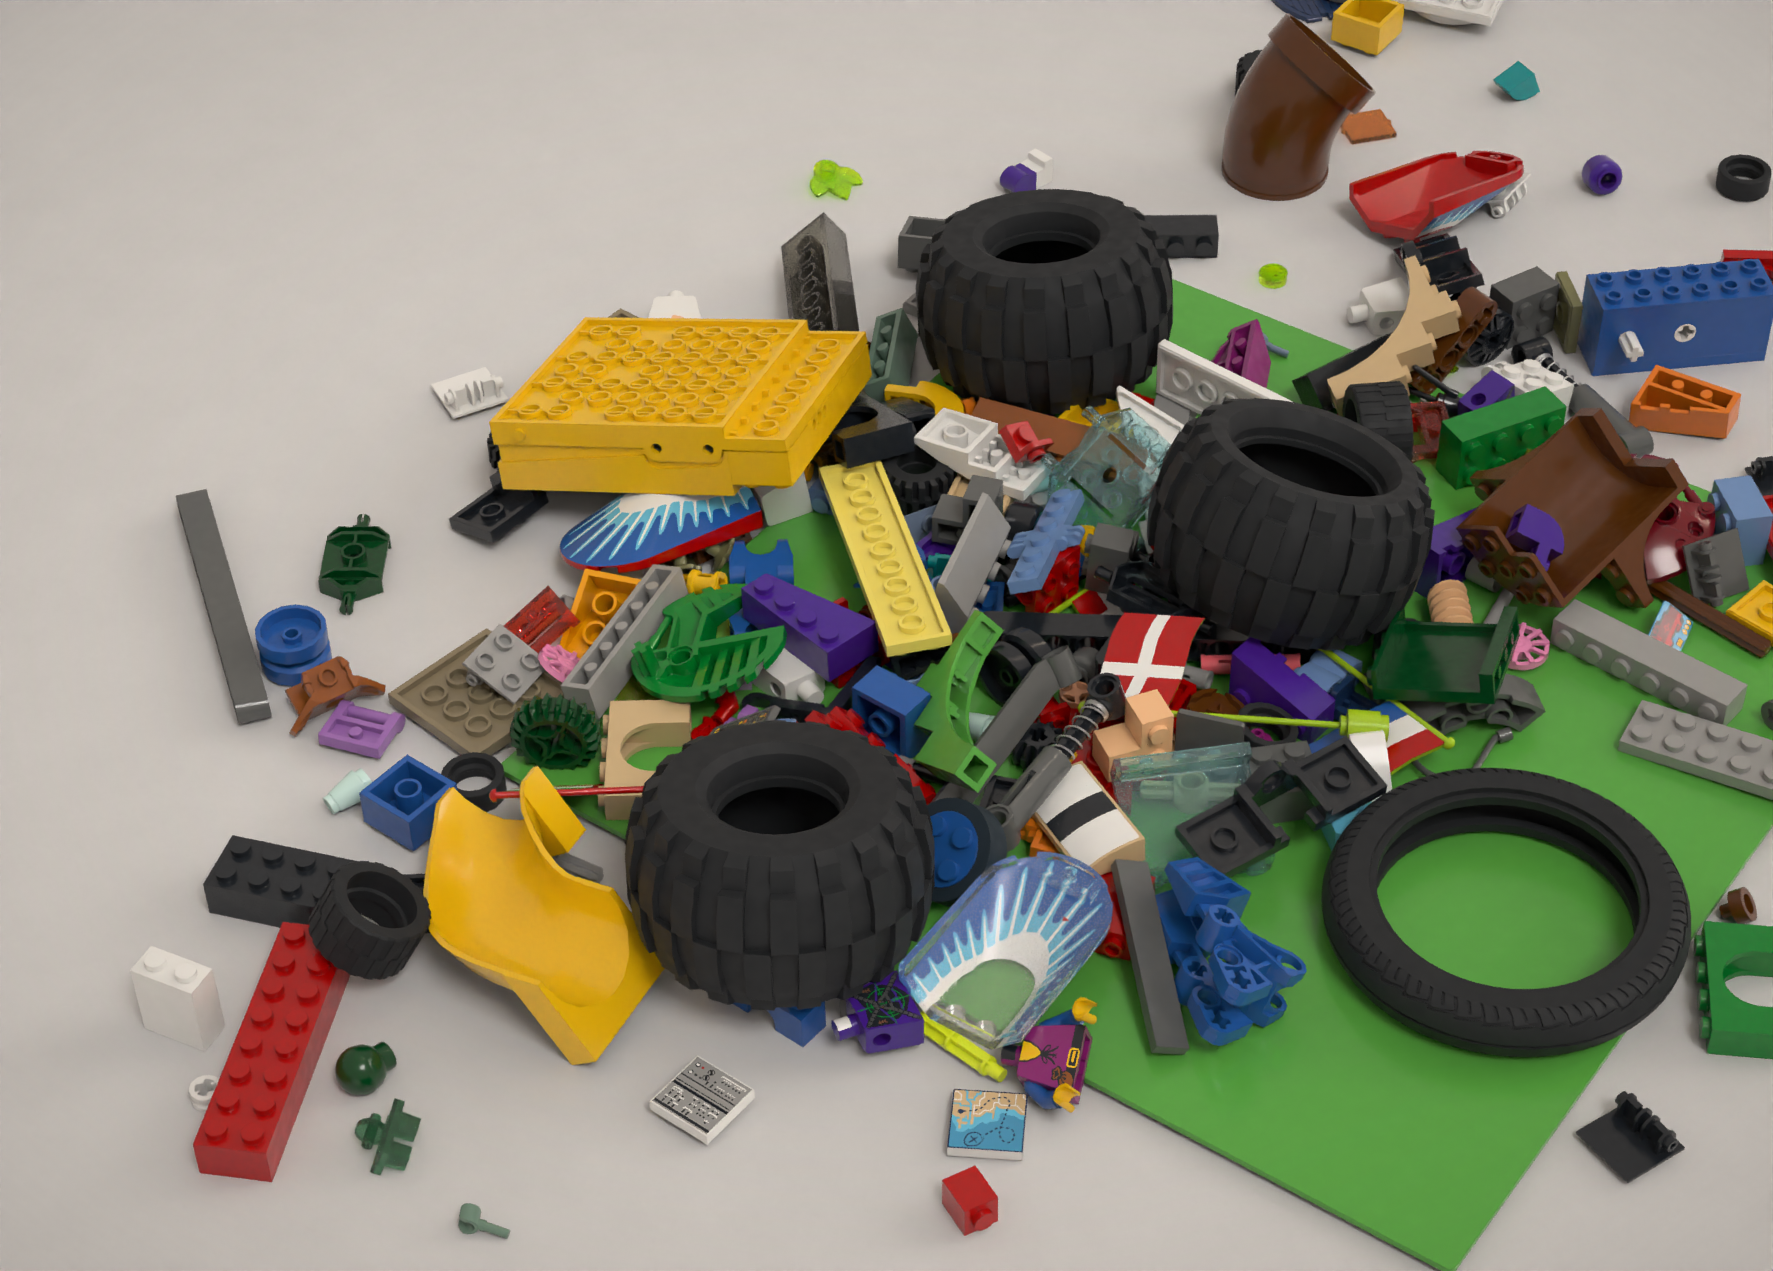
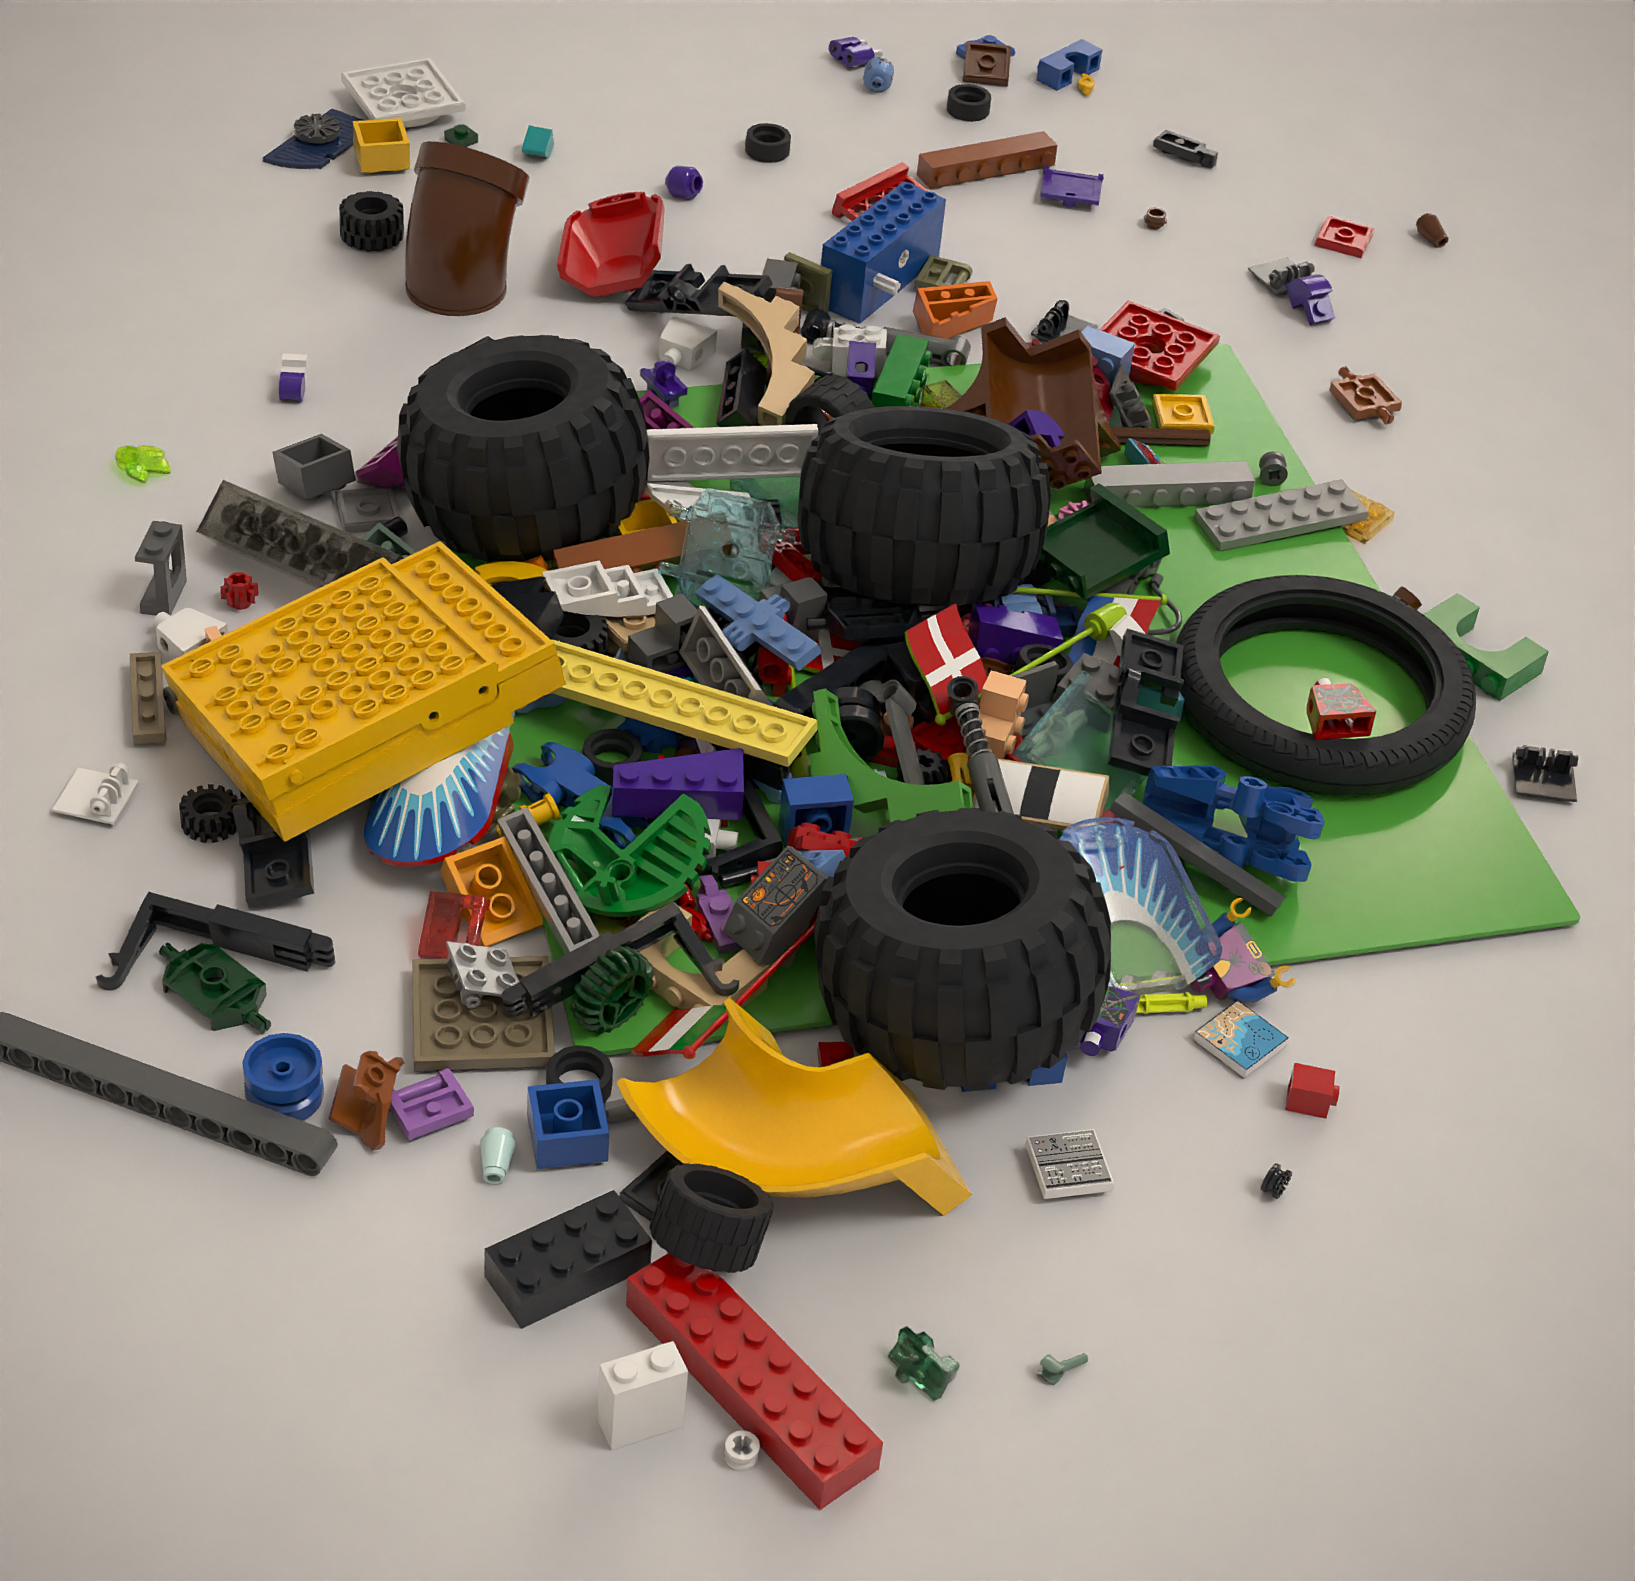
camera: 55 degrees left, 0 degrees up
(364, 1067) = (829, 1333): dark green piece -> none
(370, 493) = (227, 928): none -> black hinge
(562, 663) = (519, 944): bright pink wheel -> none
(612, 705) = (557, 979): none -> black hinge
(719, 278) = (166, 584): none -> dark grey window
(757, 305) = (239, 590): none -> red gear
(825, 565) = (611, 741): none -> black tyre
(834, 1238) = (1275, 1180): none -> black bush
(1023, 442) = (634, 564): red bracket -> none
(1304, 327) = (664, 383): none -> dark purple hips
(1428, 923) = (1338, 711): none -> red torso
(1464, 47) = (461, 135): none -> dark green plate
(1732, 368) = (938, 270): none -> olive plate

